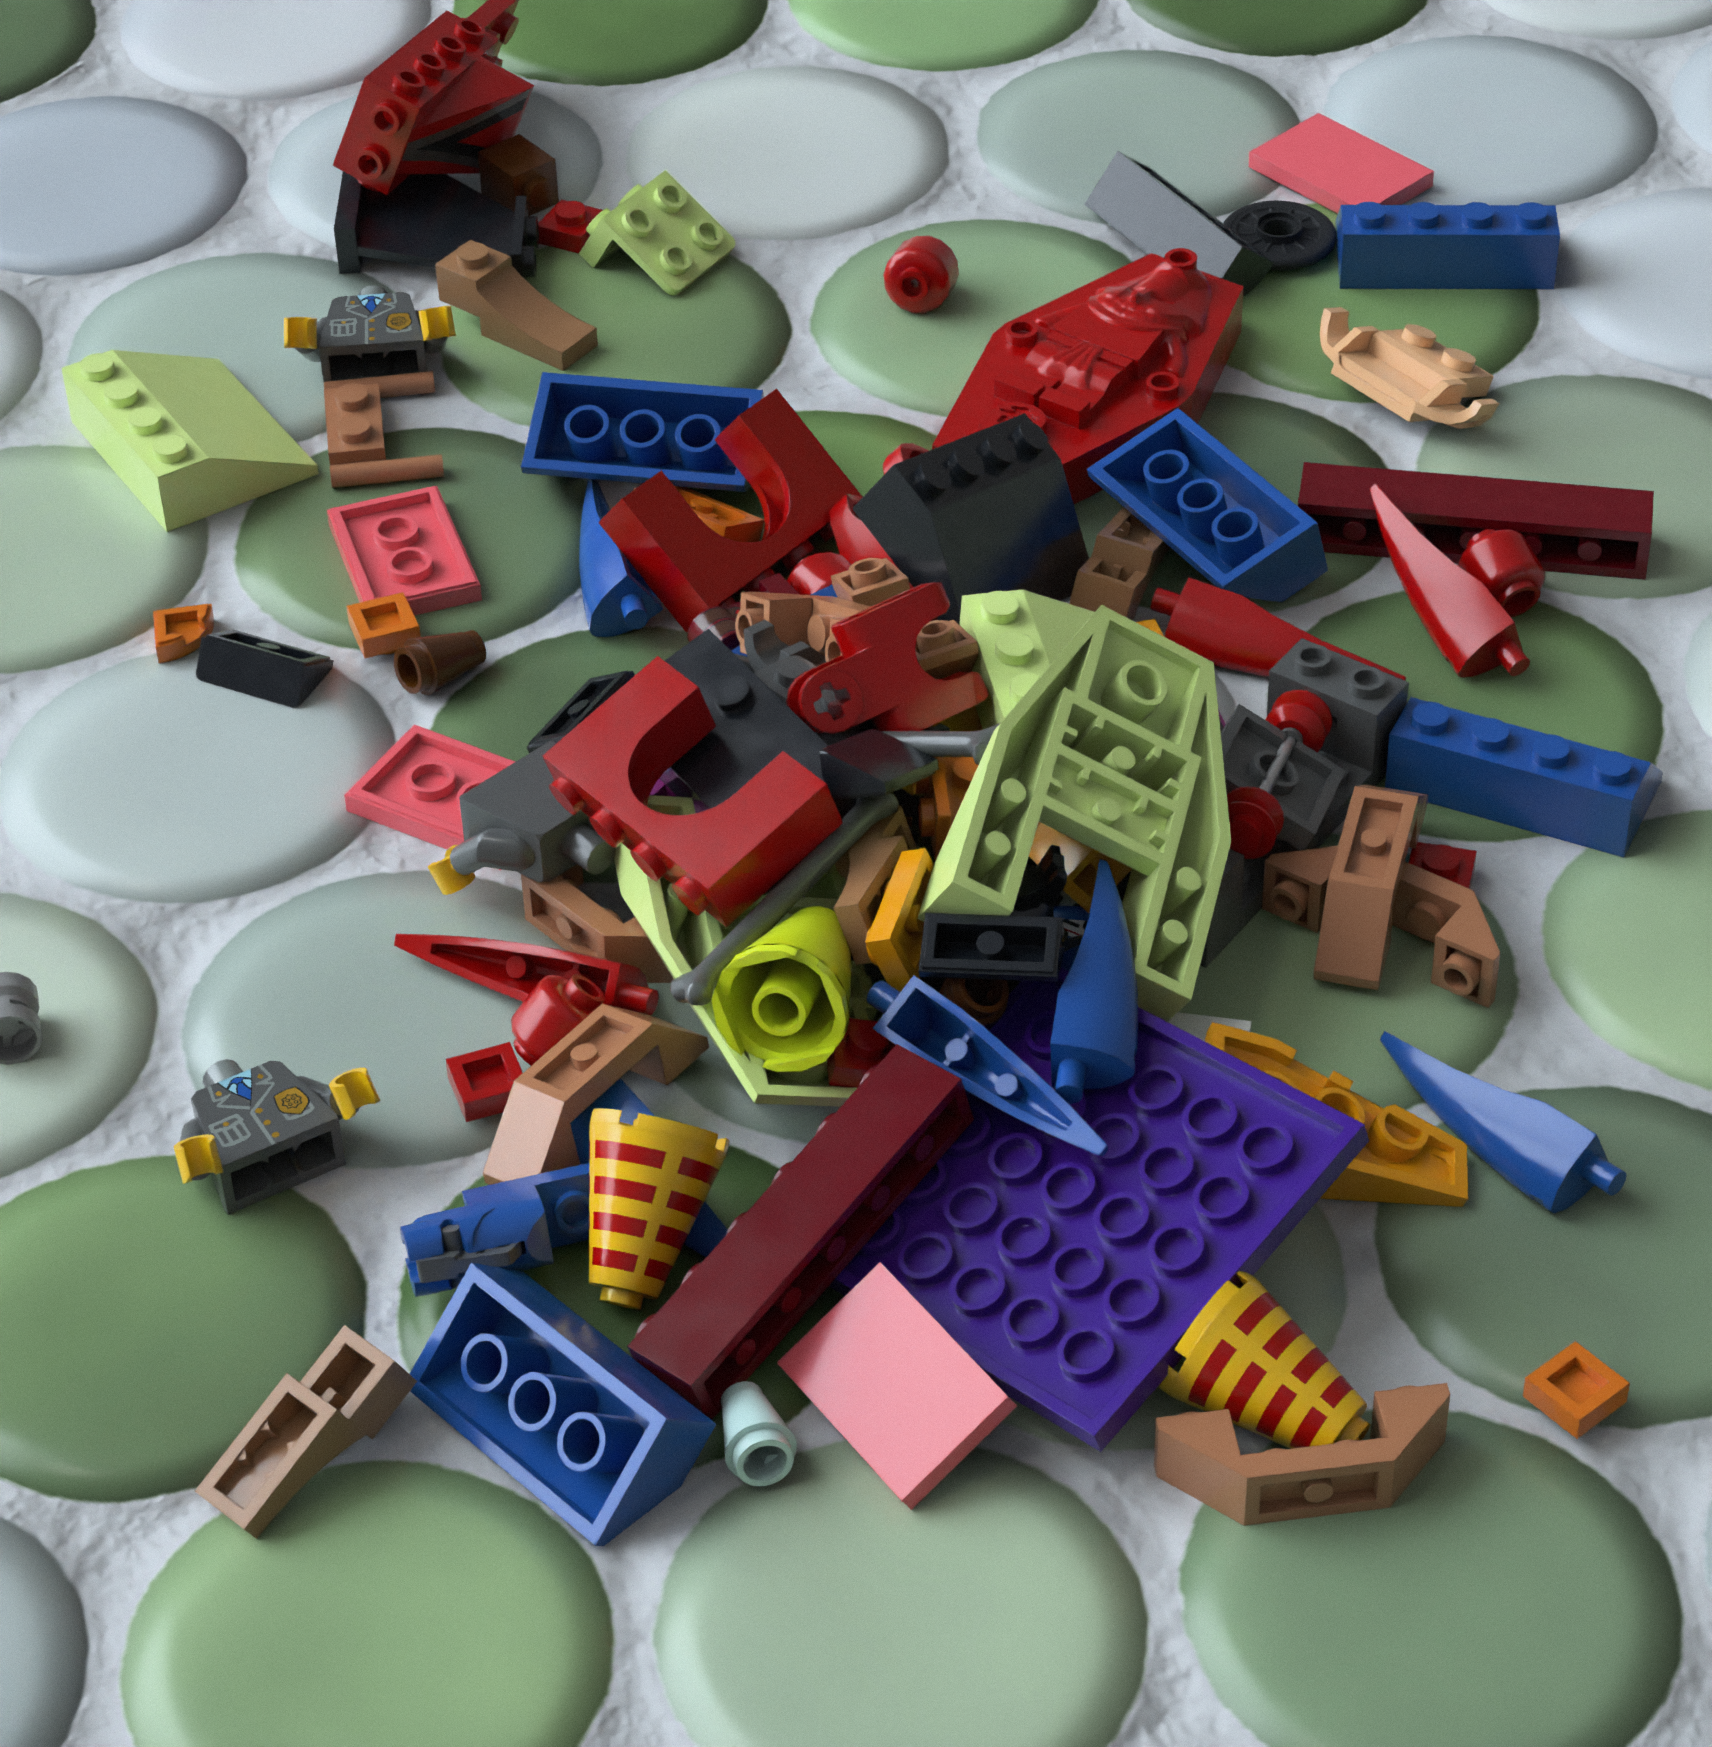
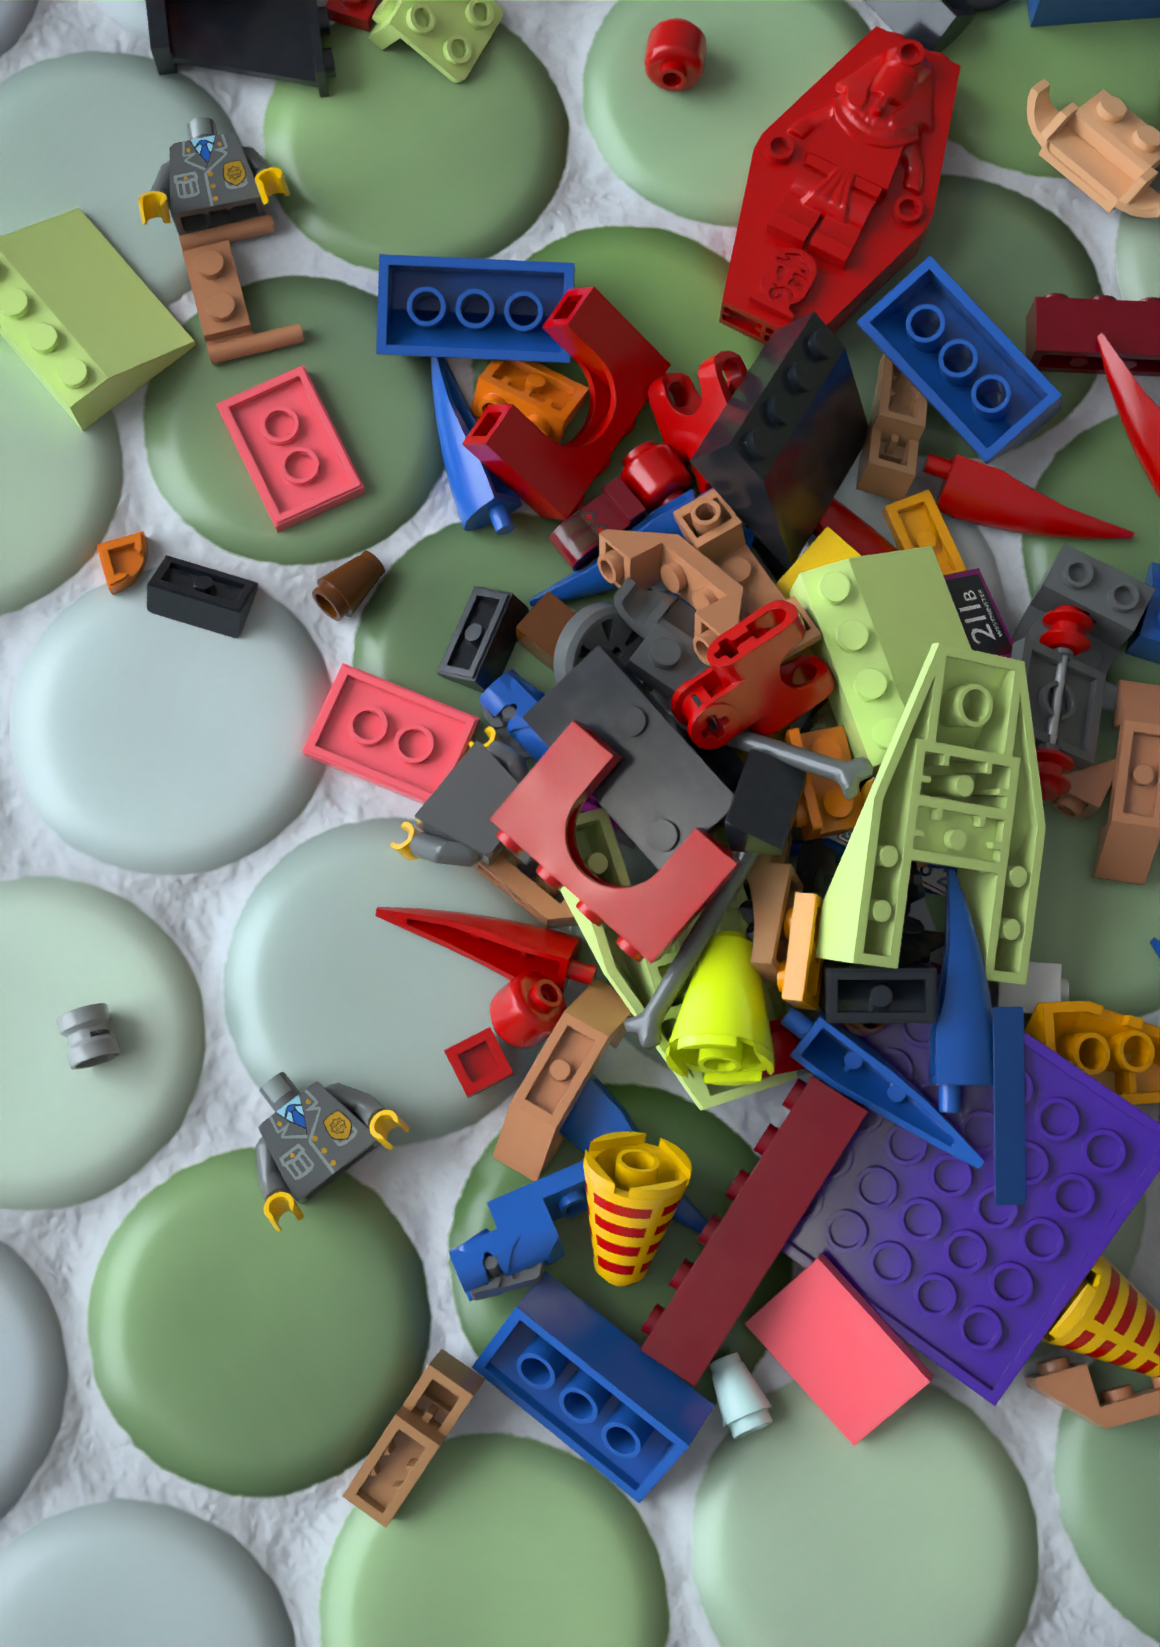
camera: 10 degrees left, 35 degrees up
(382, 624) = (294, 546): orange plate -> none
(510, 307) = (325, 127): medium nougat slope -> none
(1146, 1094) = (1009, 1106): none -> blue sticker

